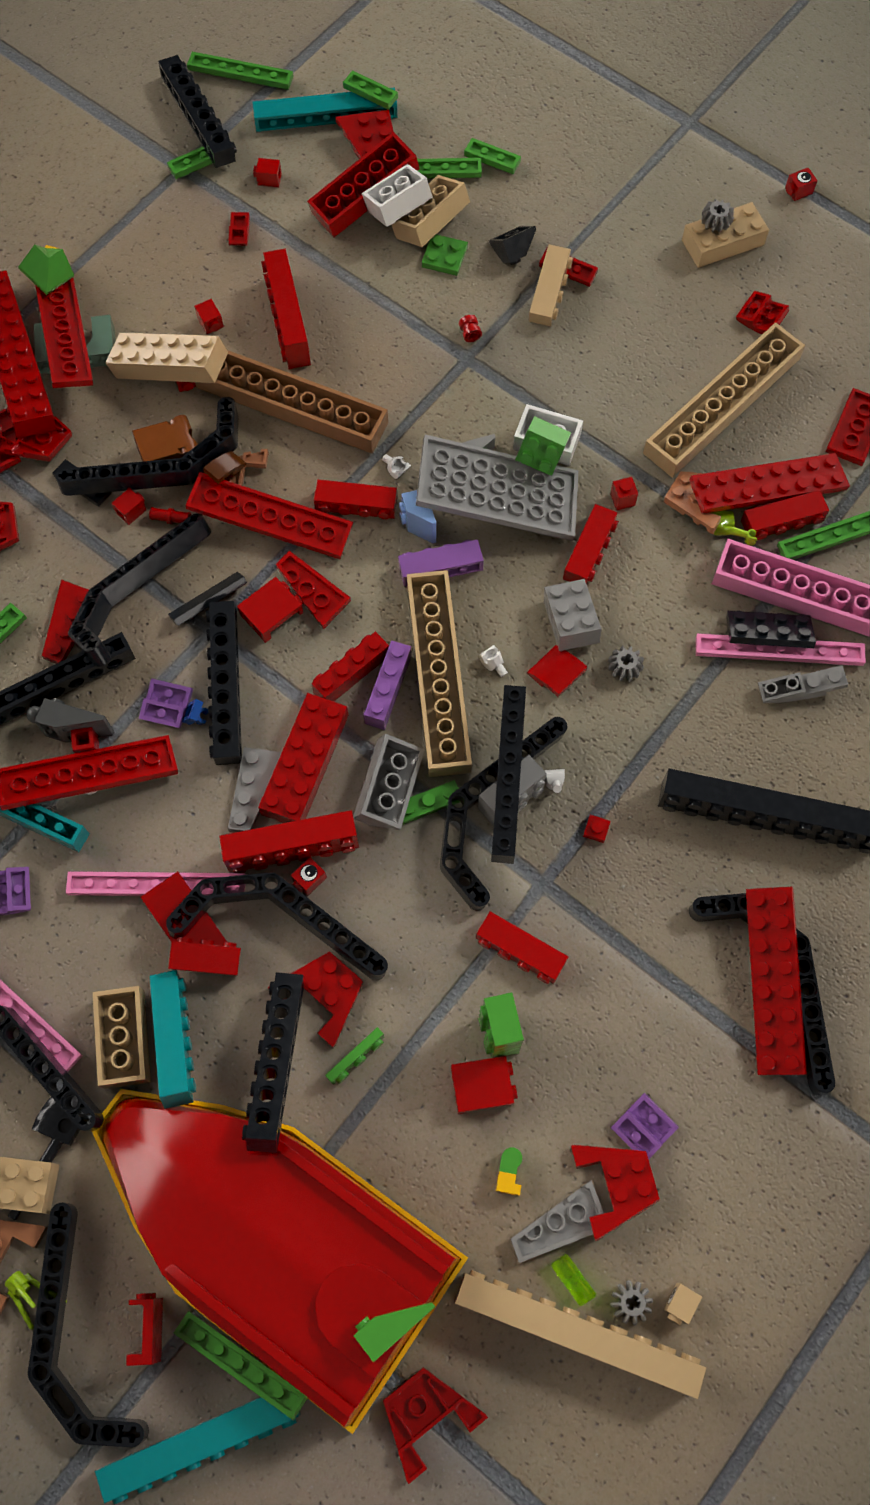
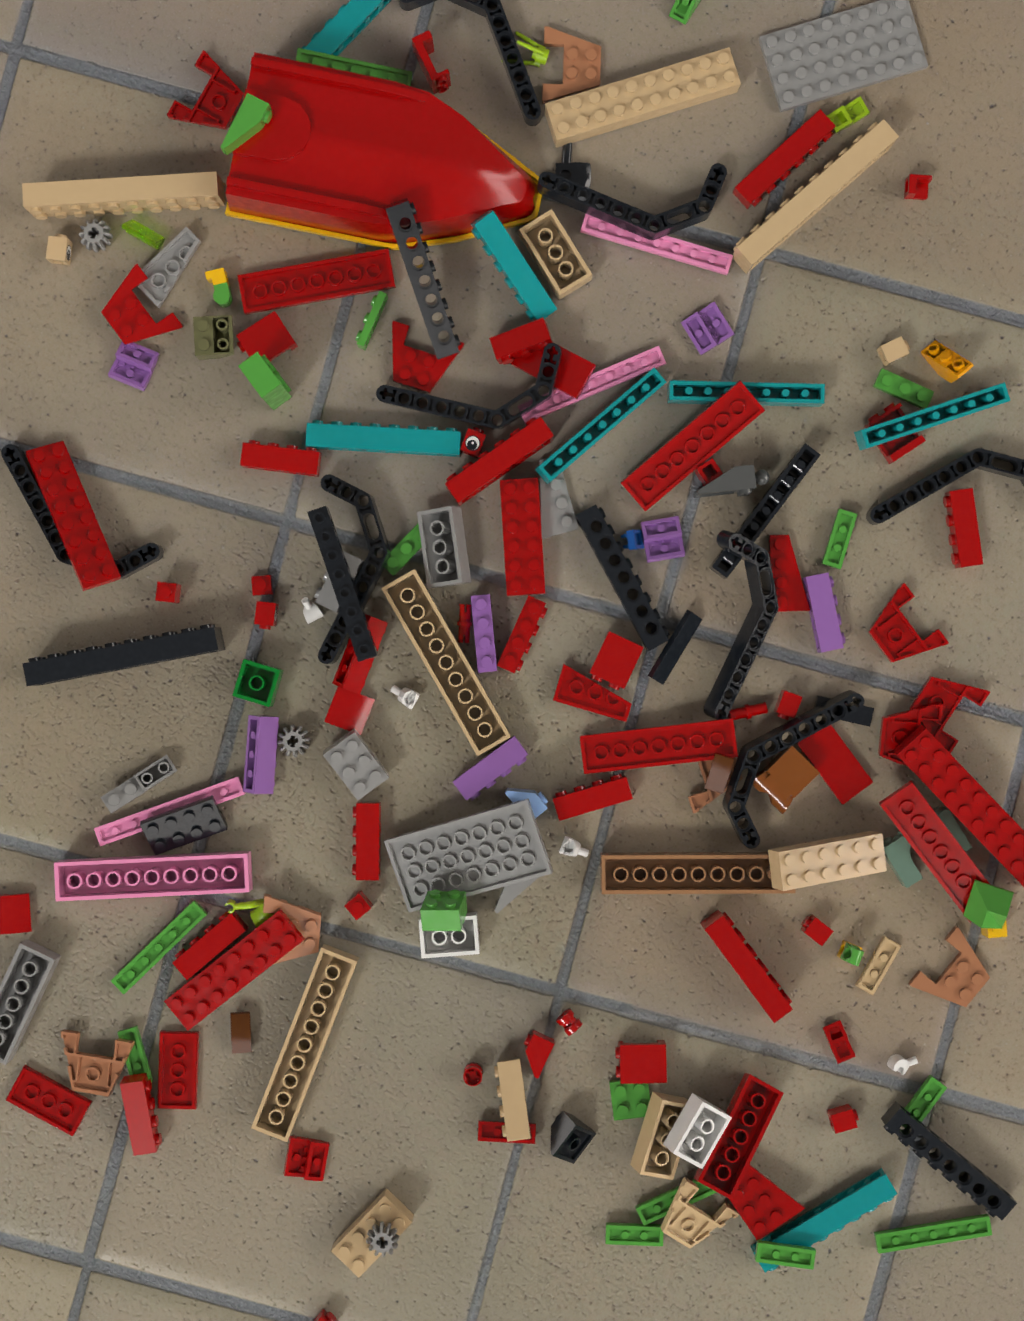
camera: 150 degrees right, 20 degrees up
(49, 570) = (823, 612): none -> medium lavender brick
(106, 237) = (960, 979): none -> nougat wing
(114, 436) = (835, 763): none -> red tile
(167, 832) = (600, 425): none -> teal brick
(171, 273) = (878, 965): none -> tan tile
(189, 283) = (850, 953): none -> bright green leg
(197, 194) = (900, 1064): none -> white piece
(397, 1129) = (316, 281): none -> red plate
(402, 921) = (383, 439): none -> teal brick
(403, 704) = (464, 623): none -> red pin
(420, 273) = (641, 1062): none -> red panel
(440, 147) = (688, 1223): none -> tan wing
(508, 316) = (538, 1050): none -> red slope
(539, 702) = (351, 673): none -> red brick
(539, 1114) = (213, 337): none -> olive slope
(578, 320) = (475, 1076): none -> red wheel
(604, 795) = (266, 614): none -> red brick
(640, 729) = (257, 682): none -> green brick
(665, 662) = (260, 754): none -> medium lavender brick
(700, 859) = (168, 592): none -> red brick
(783, 432) = (240, 1032): none -> reddish brown slope

